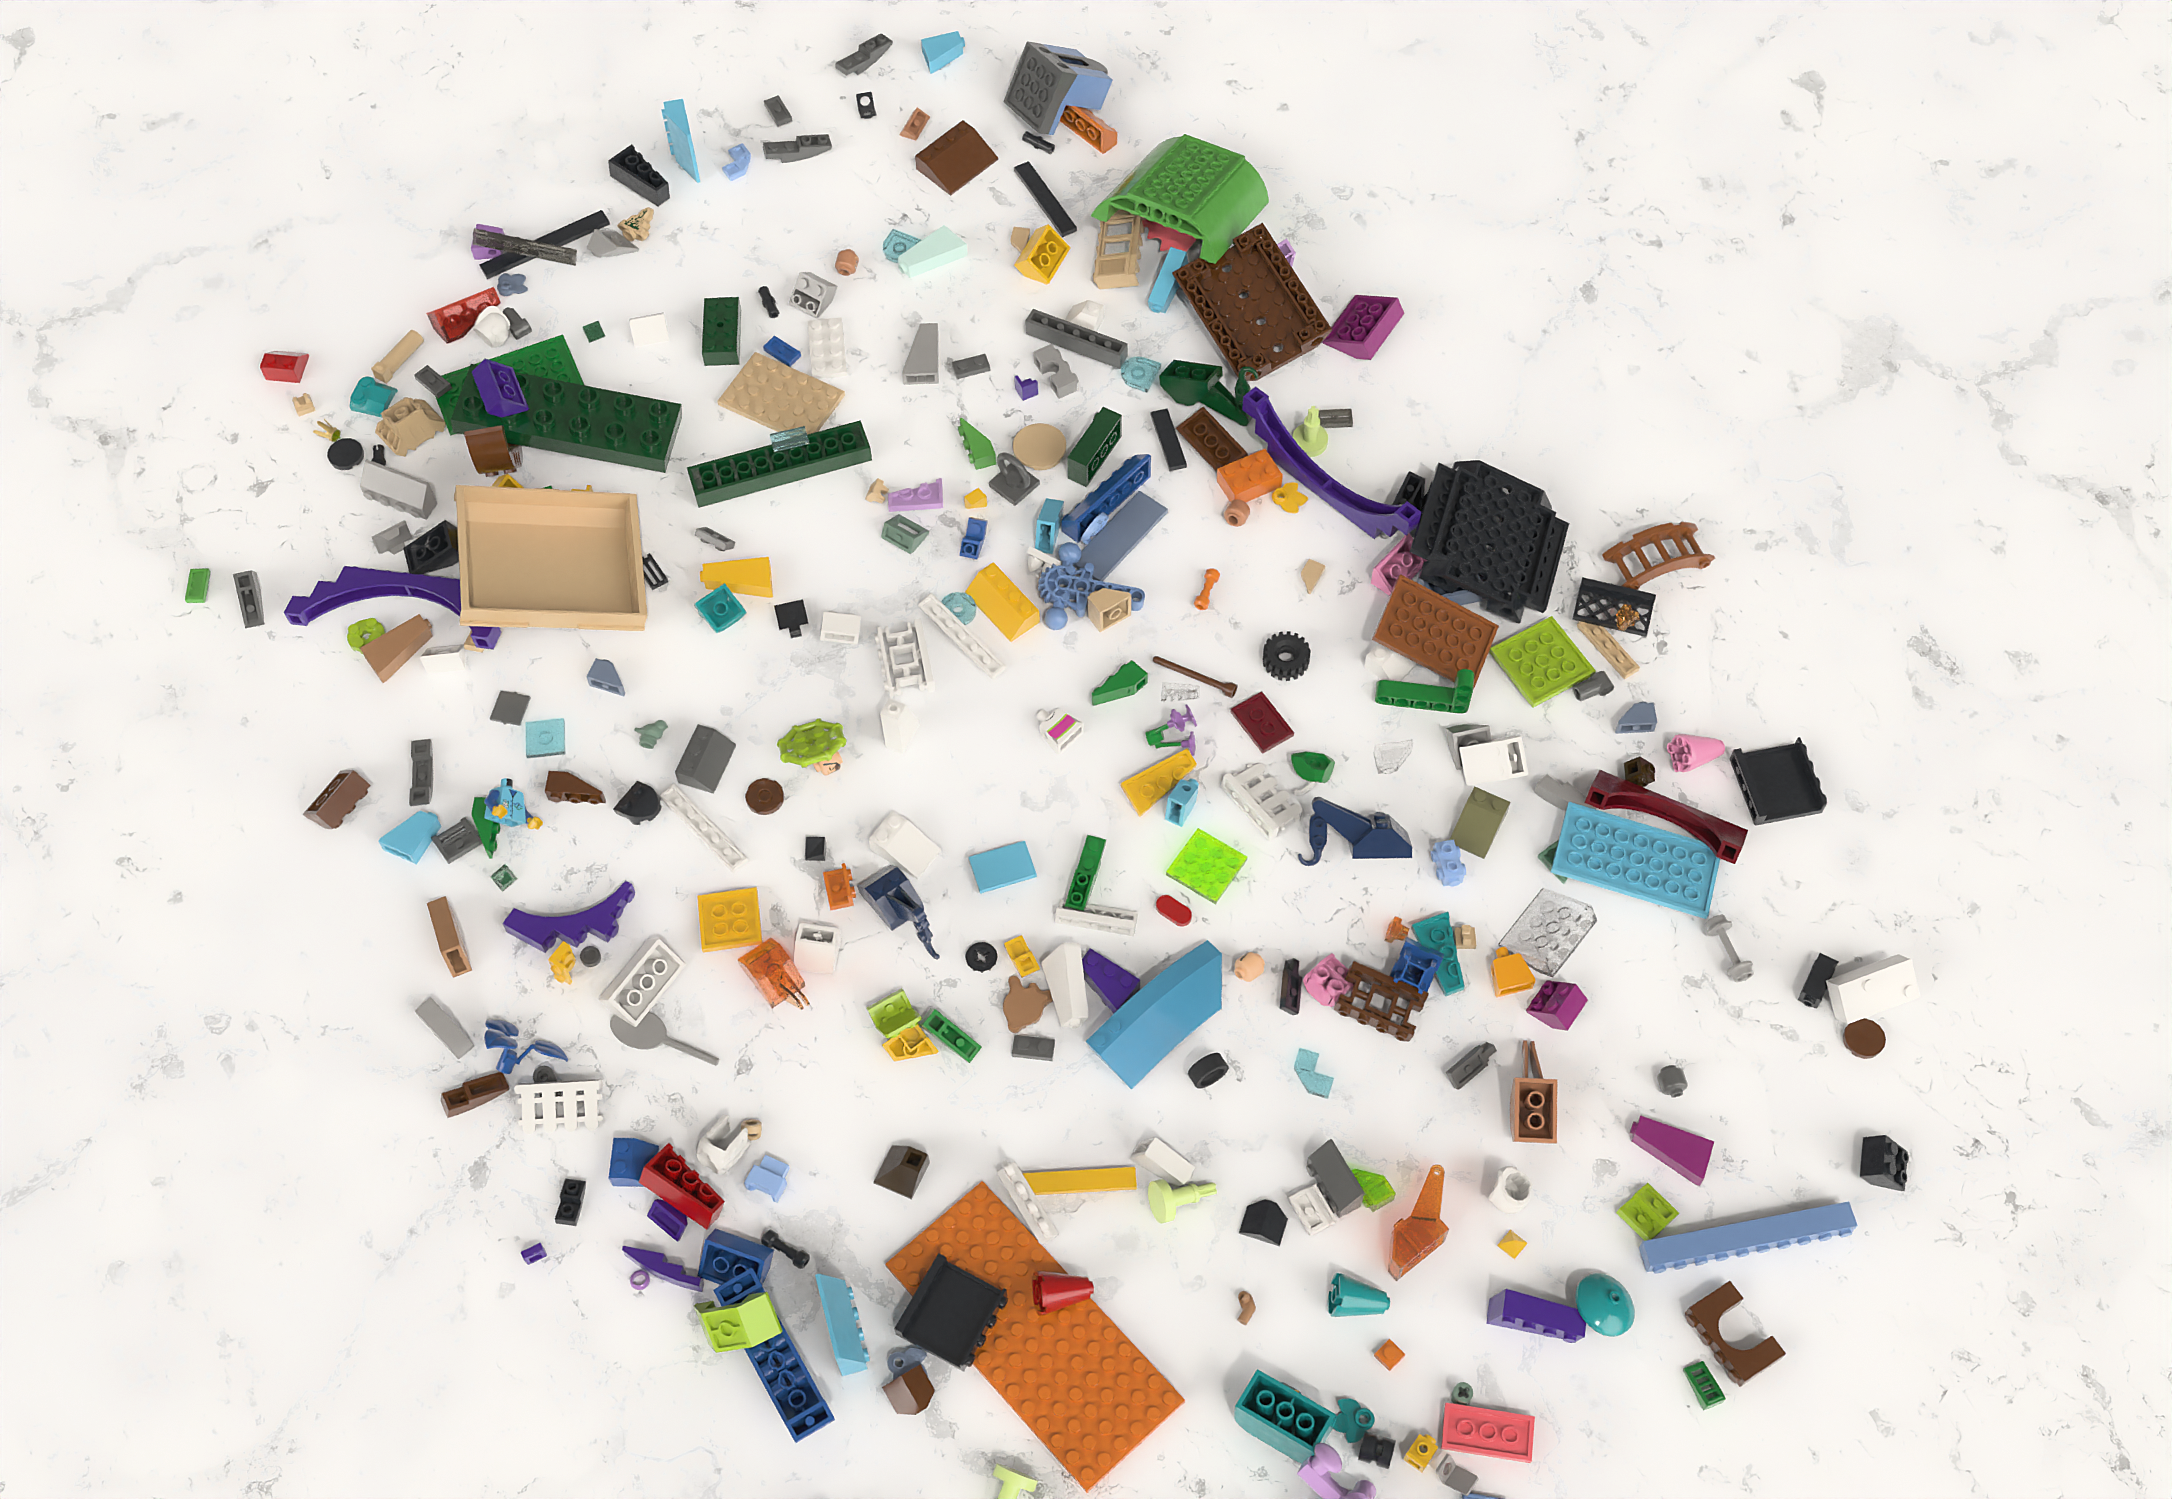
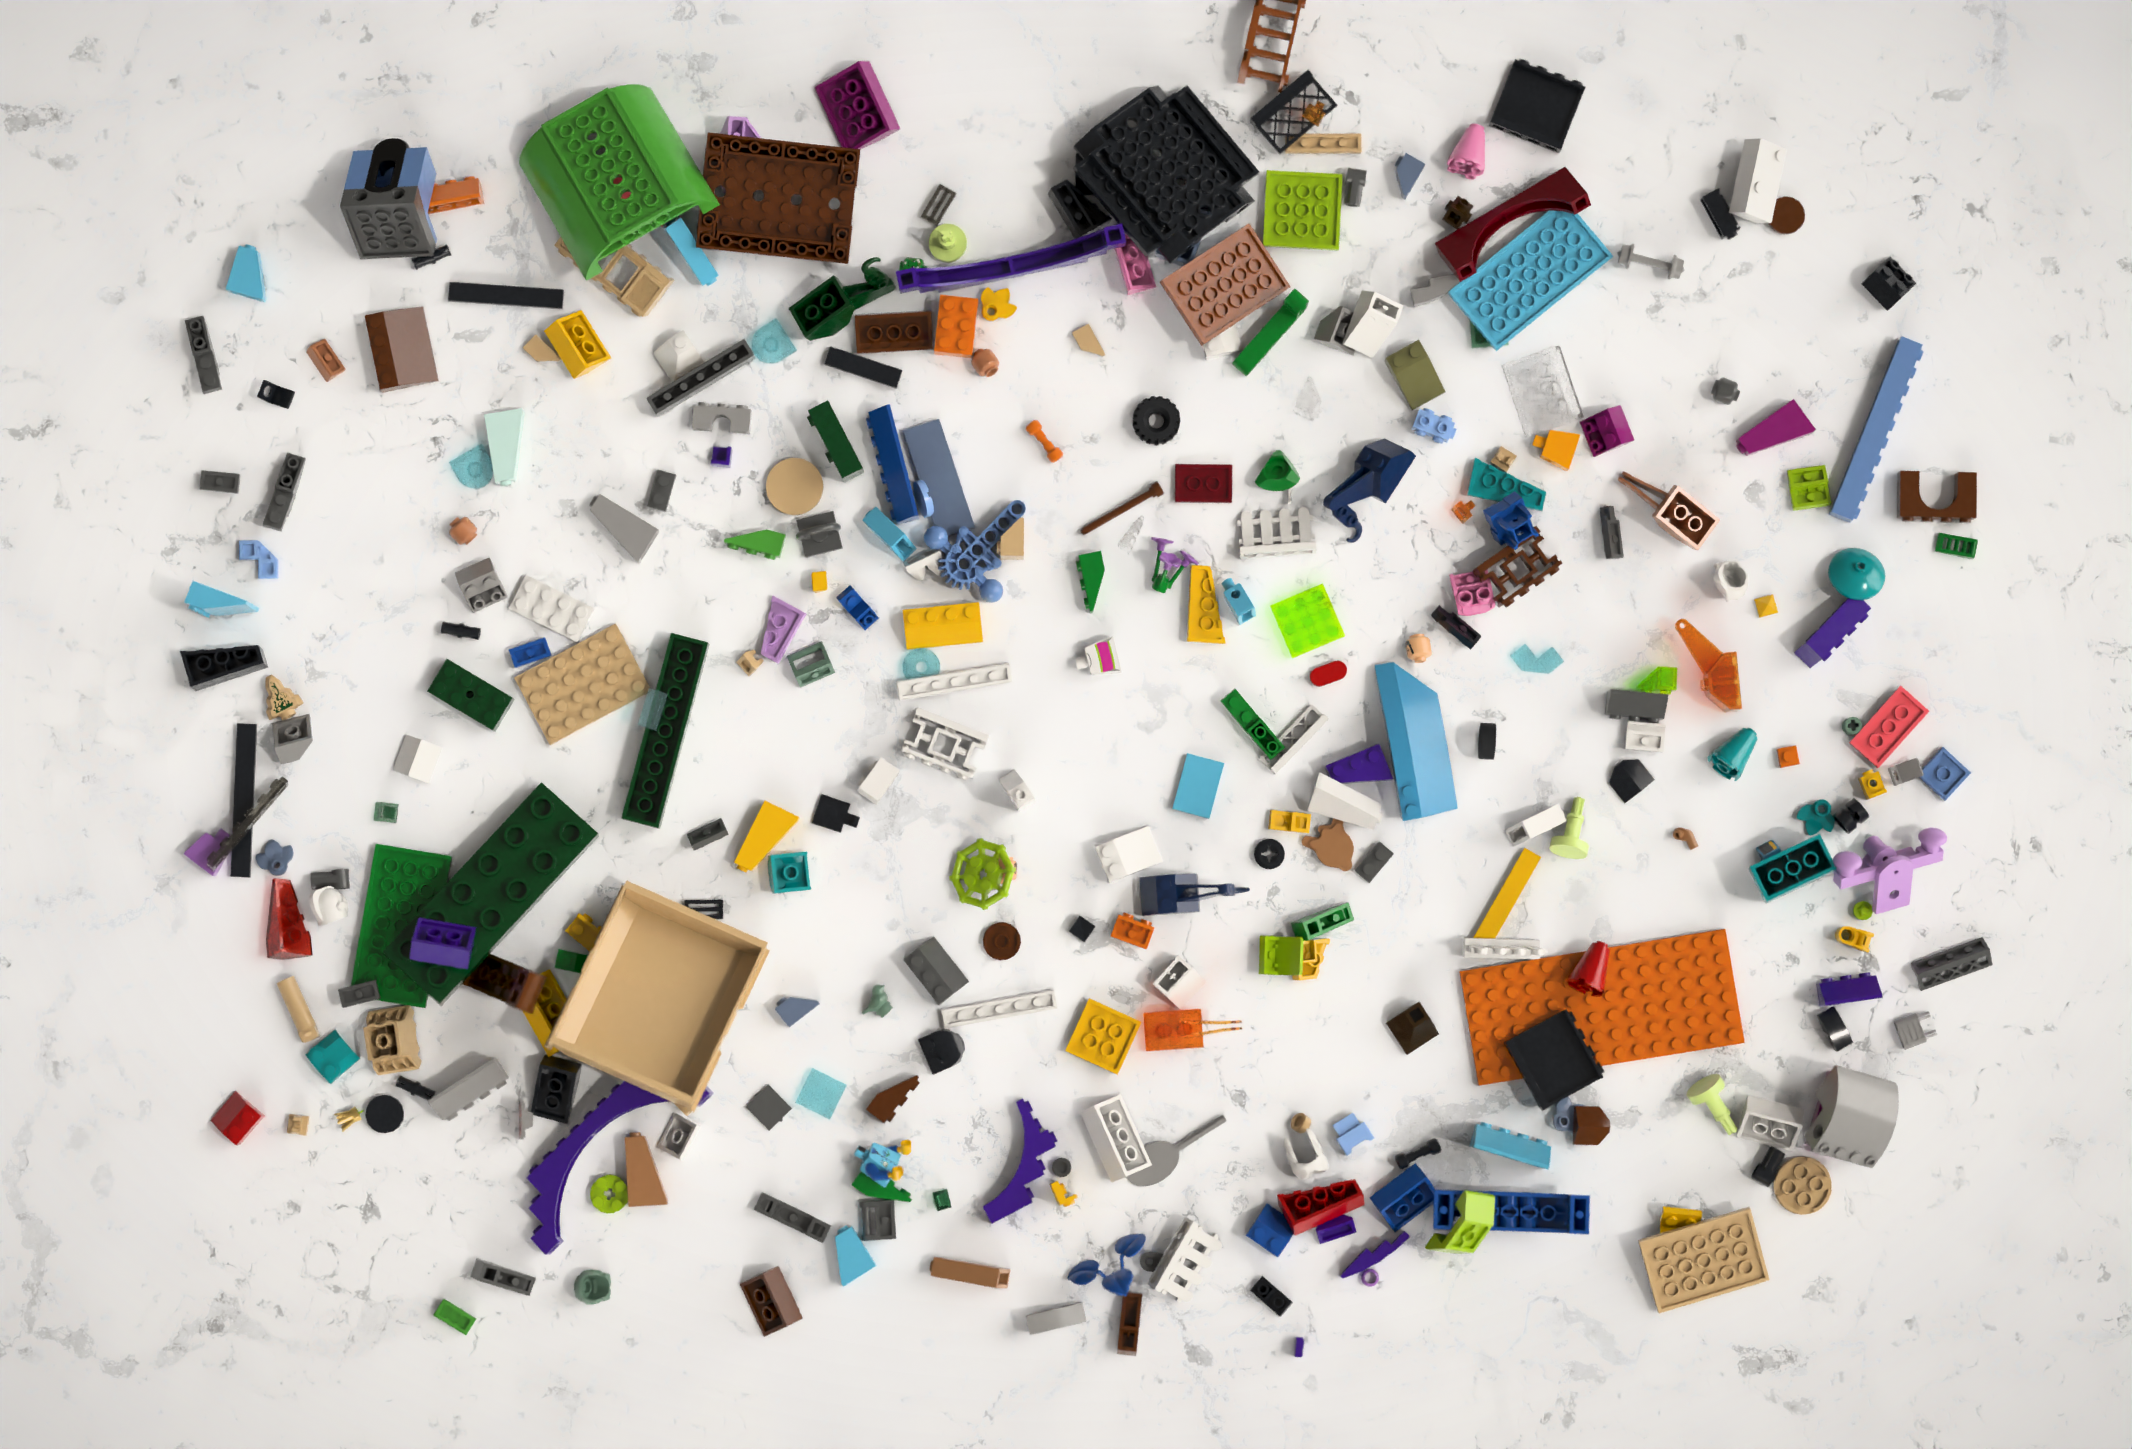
camera: 60 degrees left, 25 degrees up
(278, 666) = (592, 1286): none -> sand green hair

